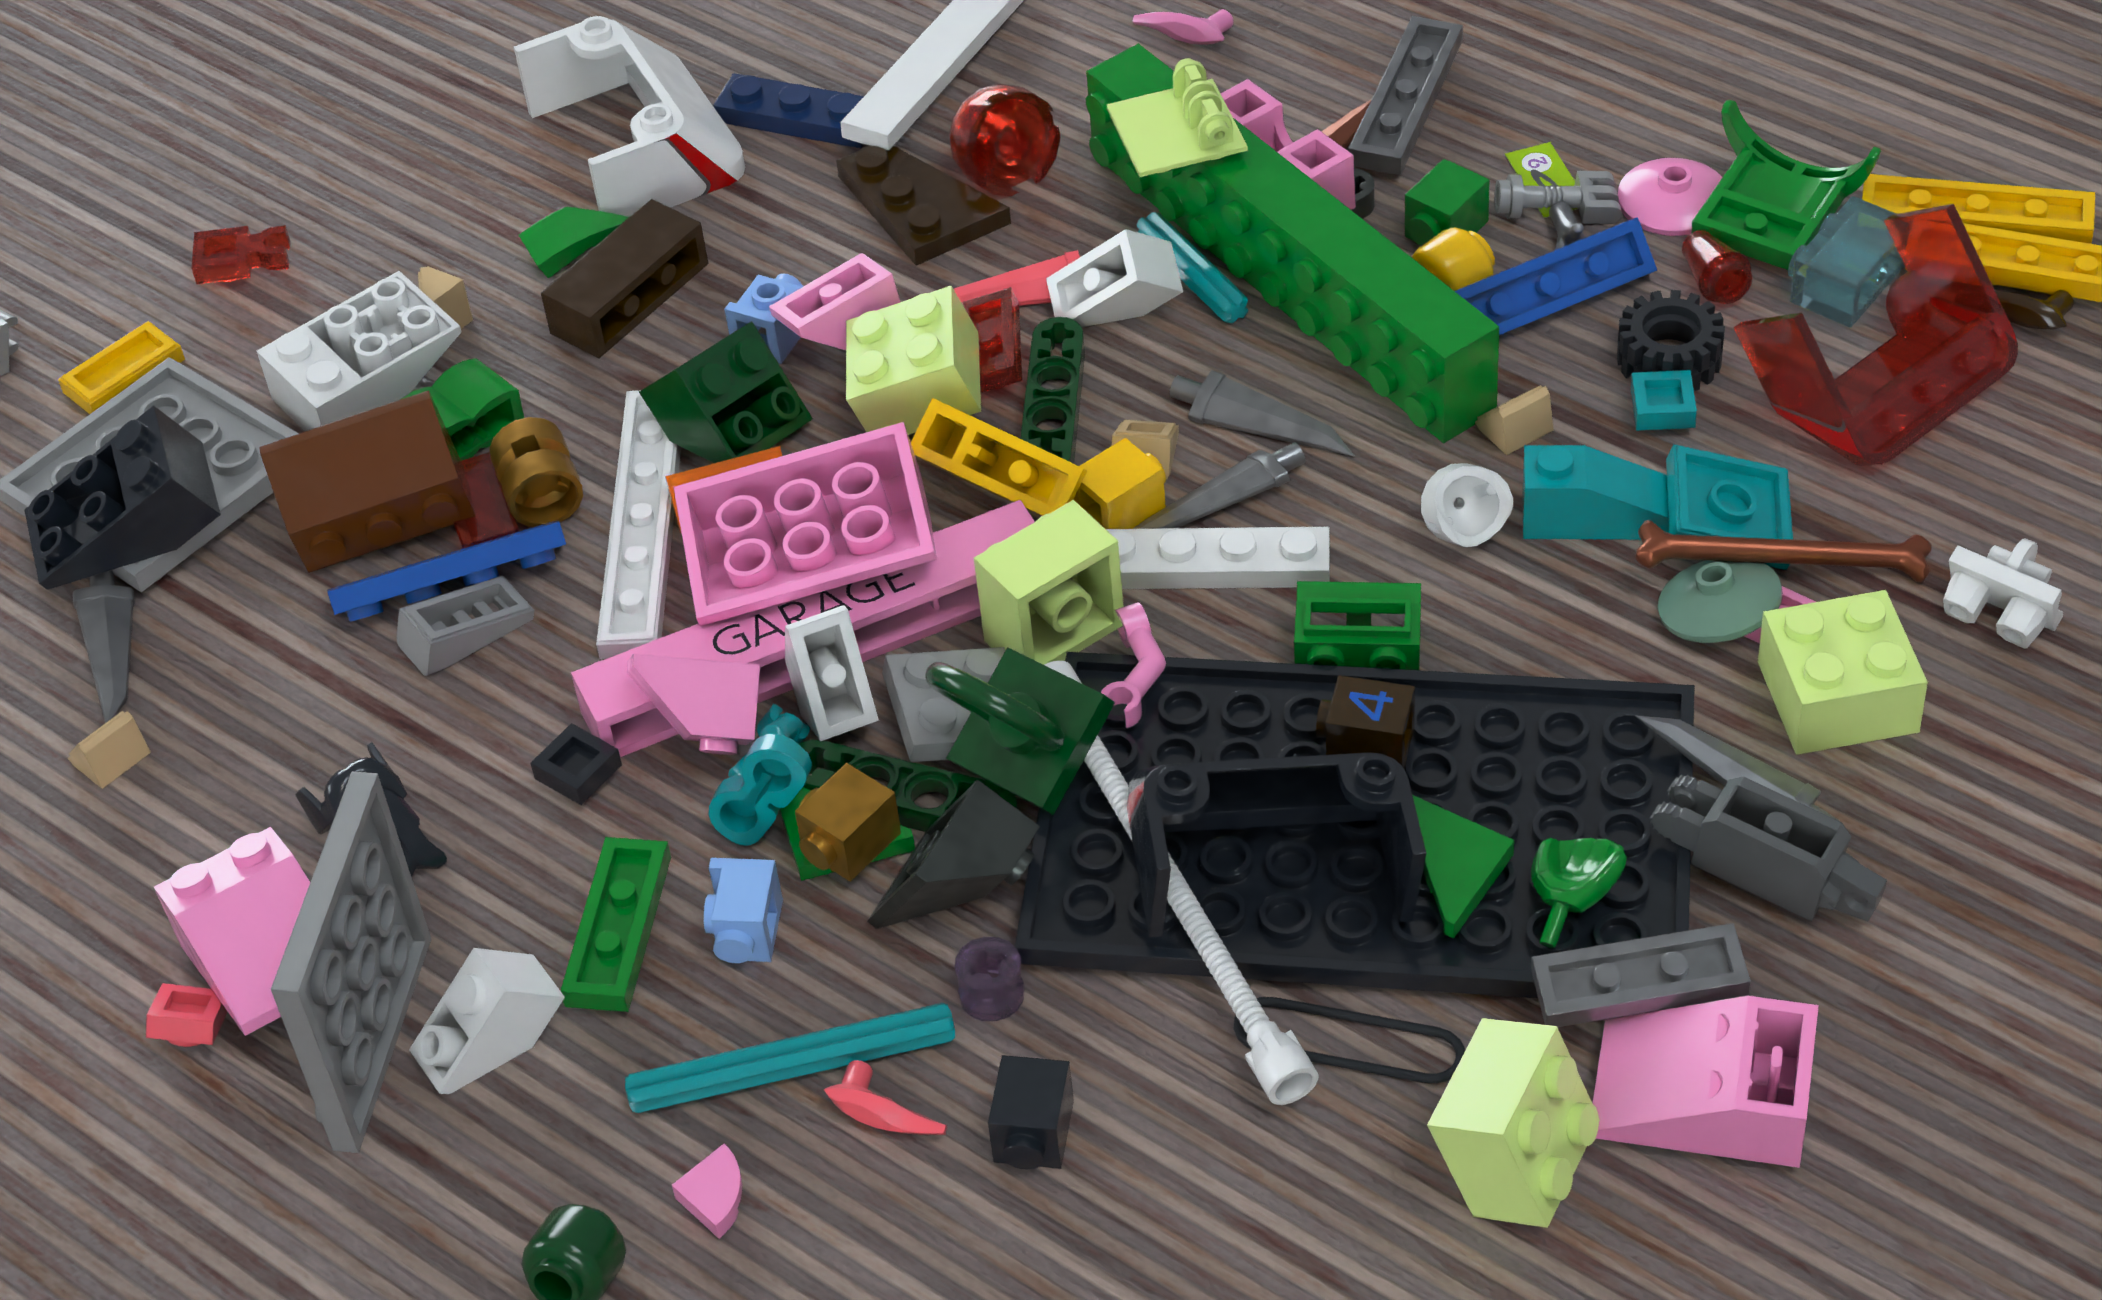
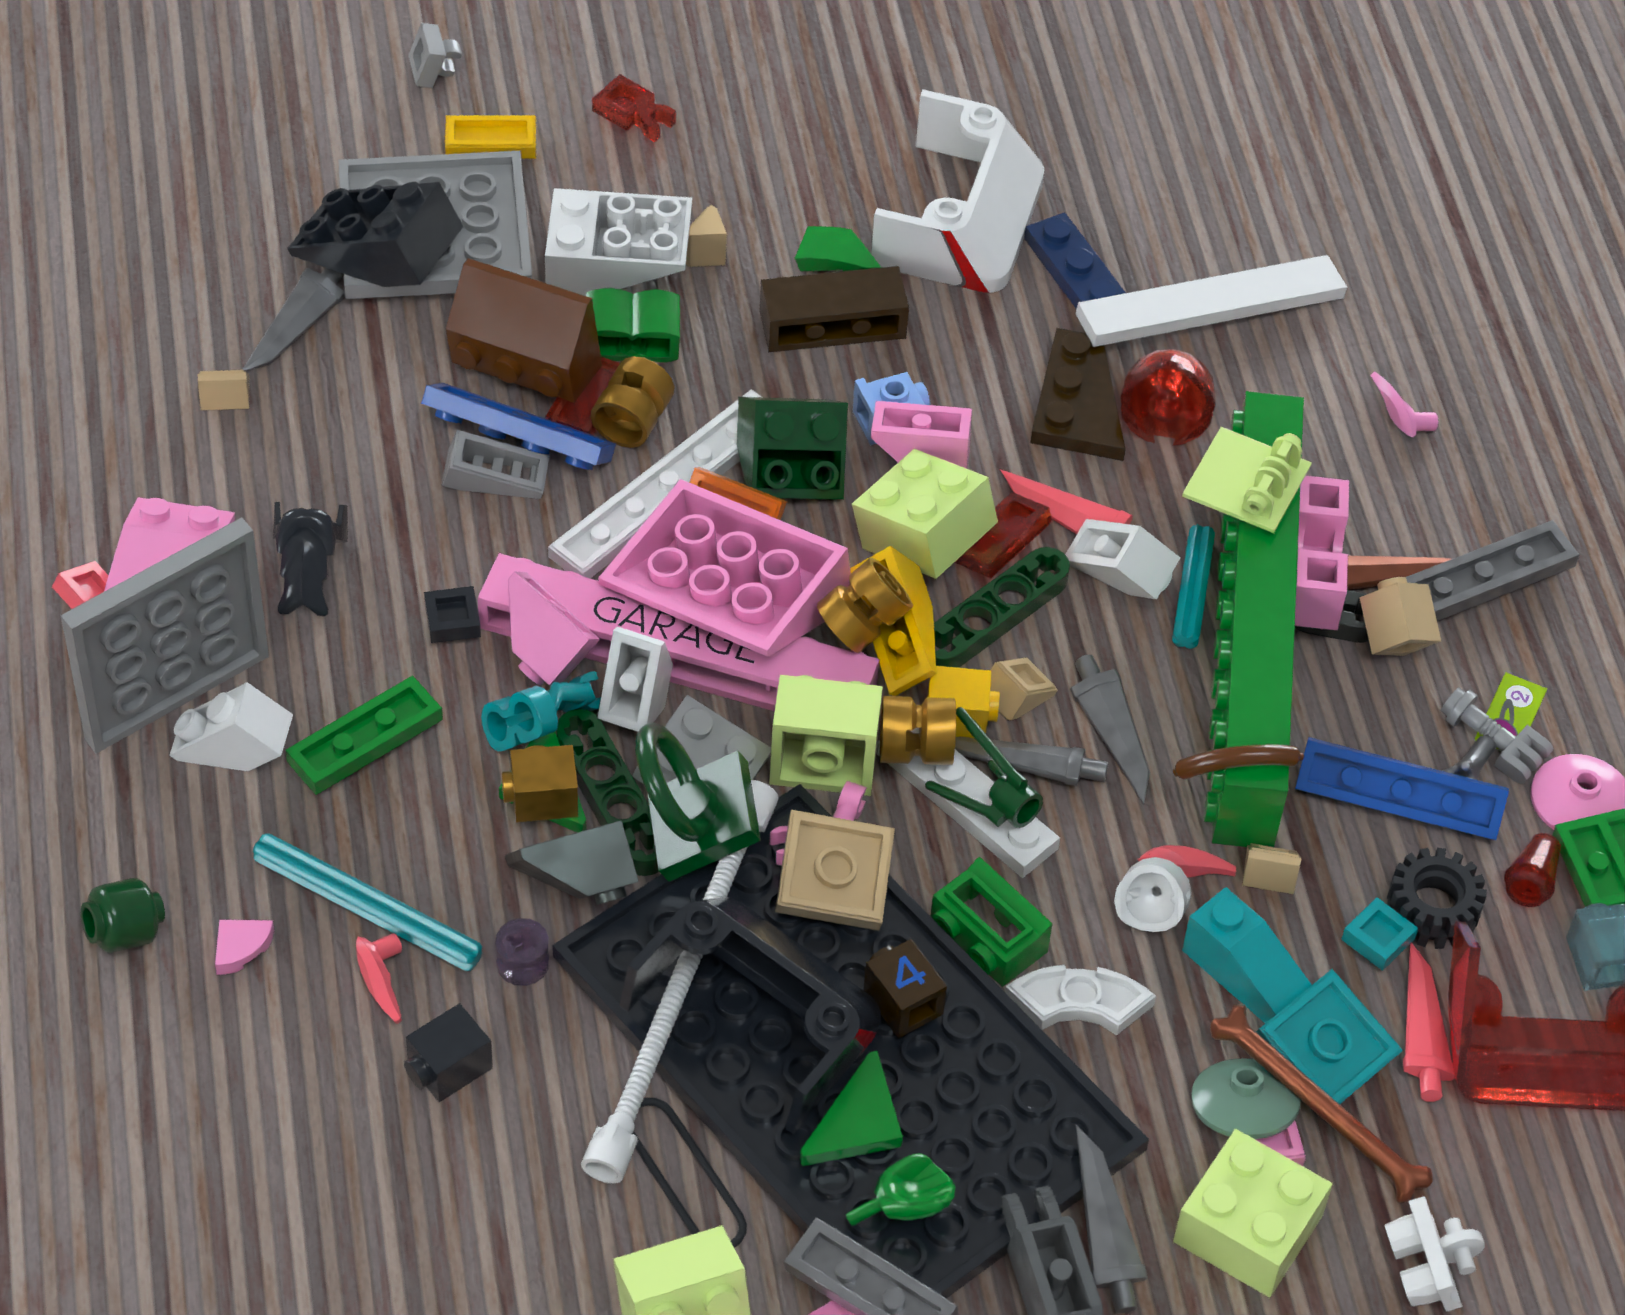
camera: 35 degrees right, 5 degrees up
(743, 909) = (437, 788): light blue brick -> none
(966, 478) = (852, 617): none -> pearl gold wheel
(1140, 515) = (936, 730): none -> pearl gold wheel
(1193, 685) = (835, 870): none -> tan tile
(1266, 518) = (1010, 794): none -> dark green plant
(1392, 158) = (1400, 617): none -> tan brick
(1428, 334) = (1237, 757): none -> reddish brown piece
(1444, 200) = (1402, 680): green brick -> none
(1457, 257) = (1350, 722): yellow head -> none
(1467, 454) = (1192, 860): none -> coral bar
(1496, 629) = (1080, 994): none -> white tile
(1797, 454) = (1425, 1039): none -> coral bar

